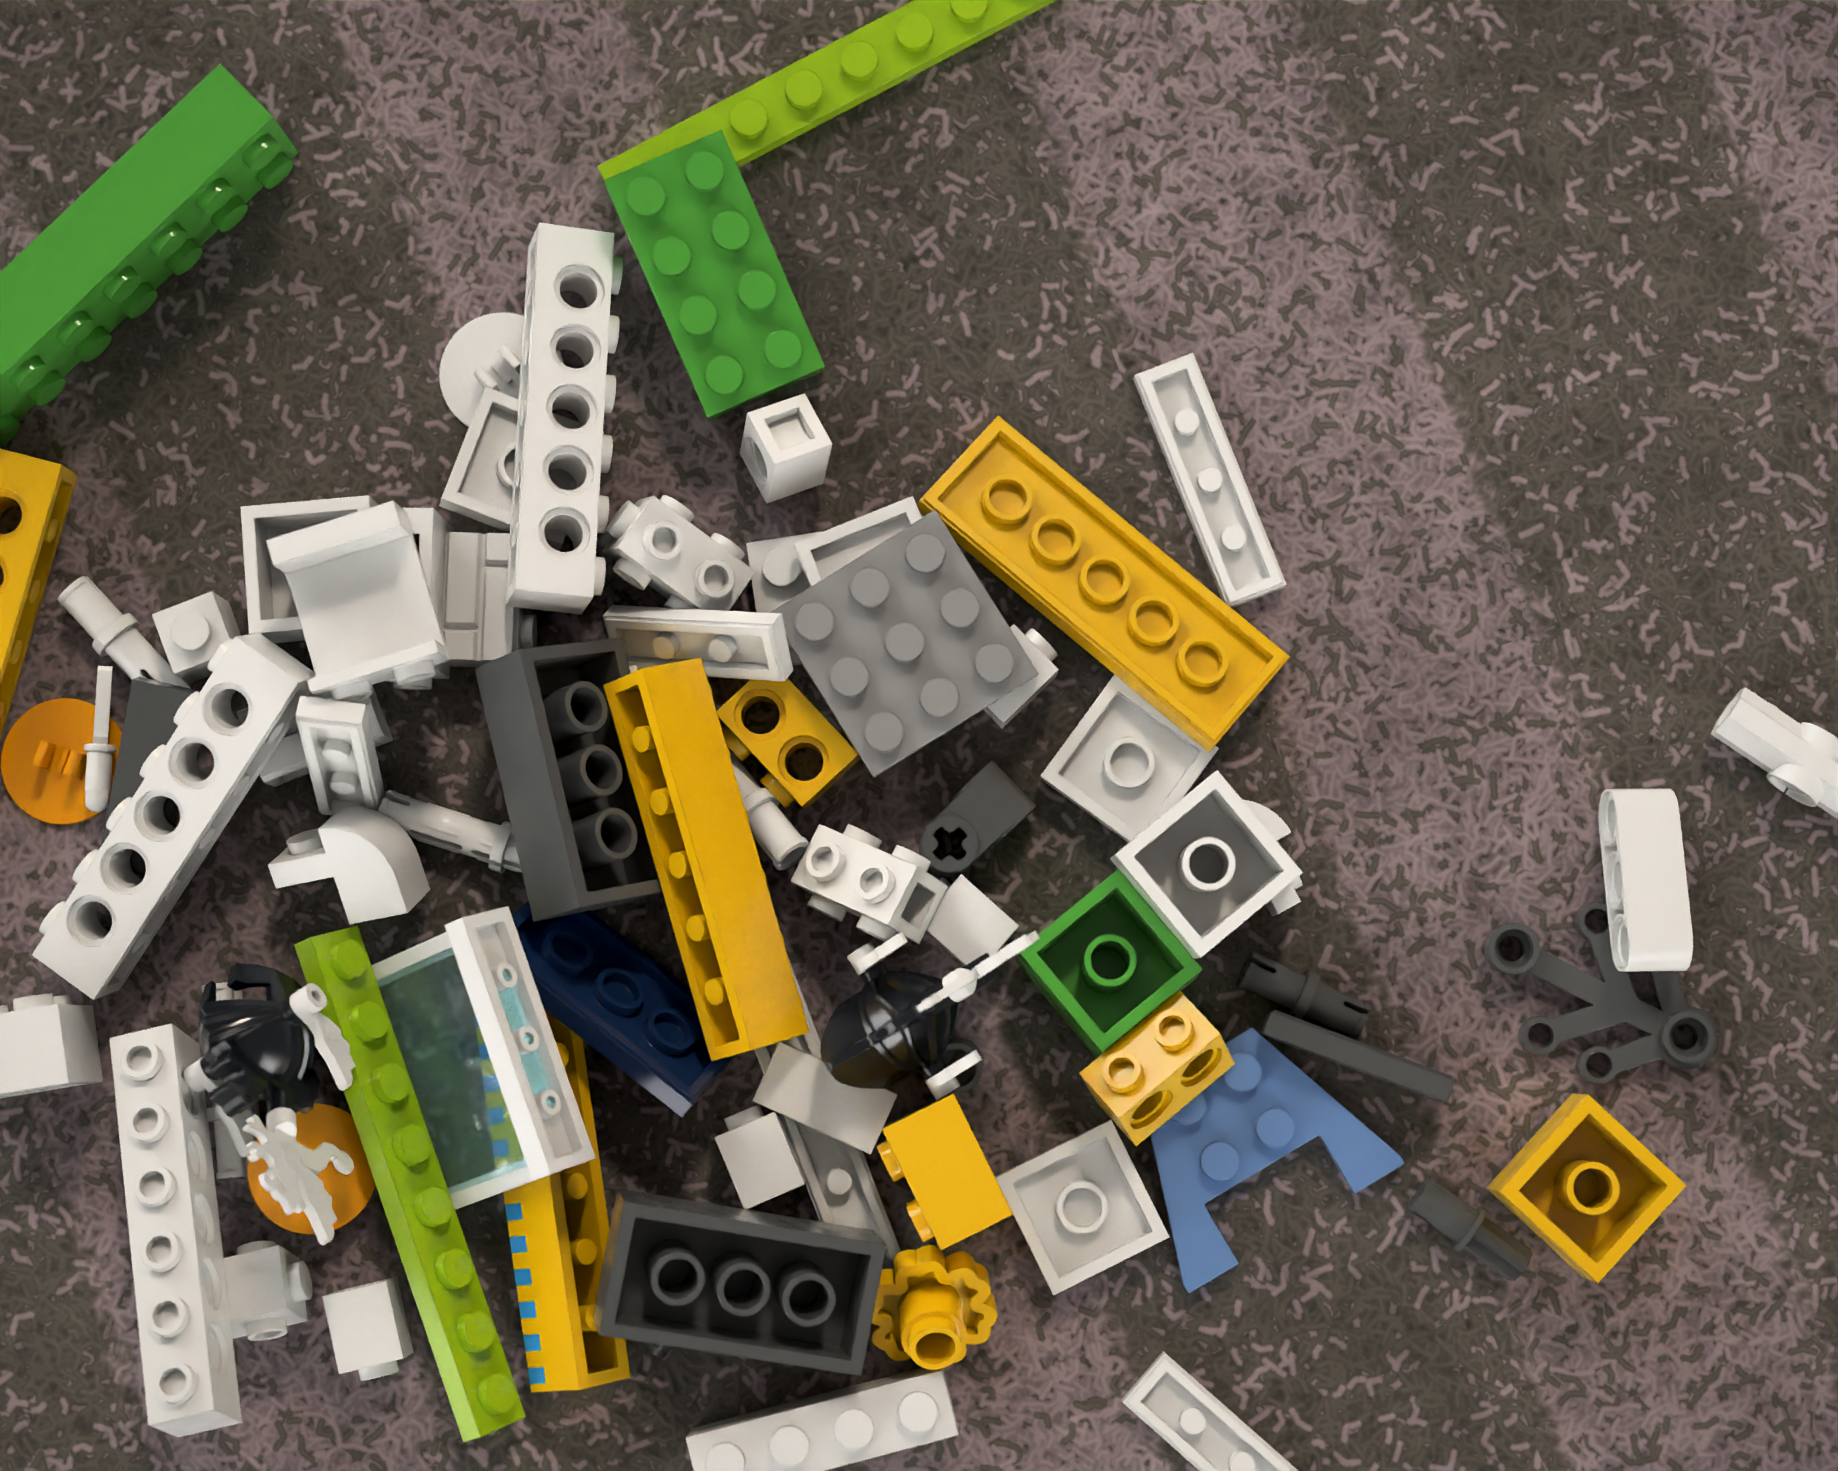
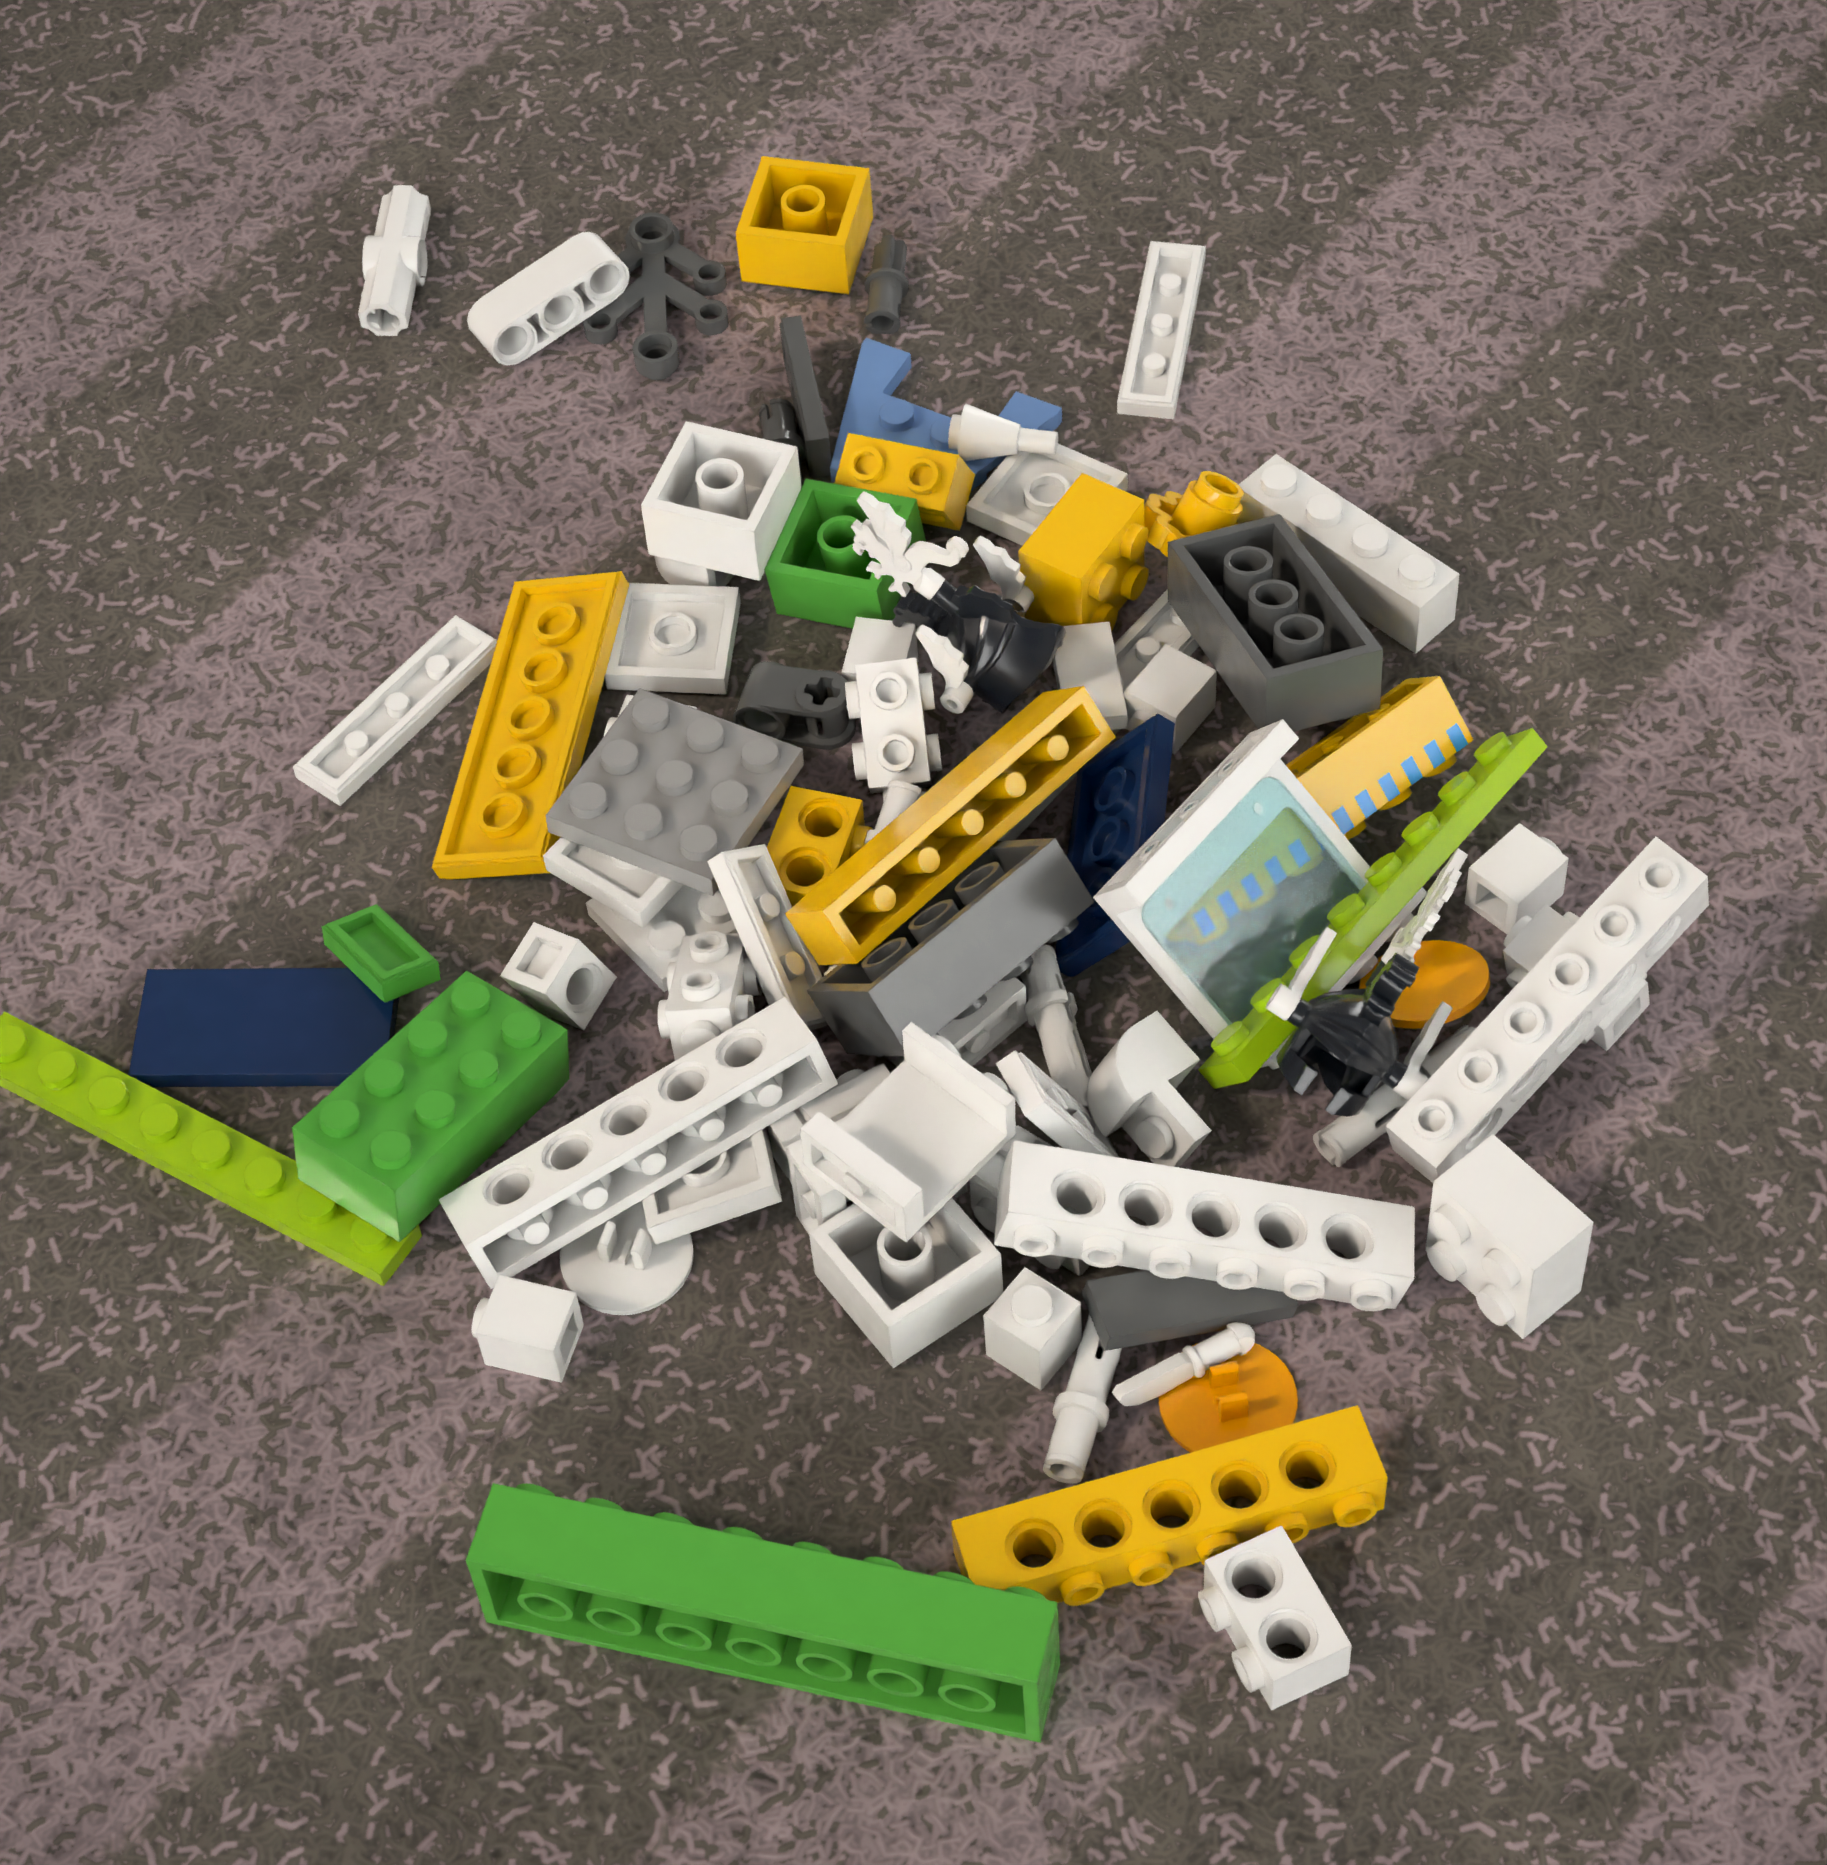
camera: 120 degrees left, 30 degrees down
(465, 250) = (528, 1328): none -> white brick
(916, 198) = (257, 1027): none -> dark blue tile
(921, 321) = (381, 953): none -> bright green tile
(1173, 1187) = (986, 435): none -> white cone

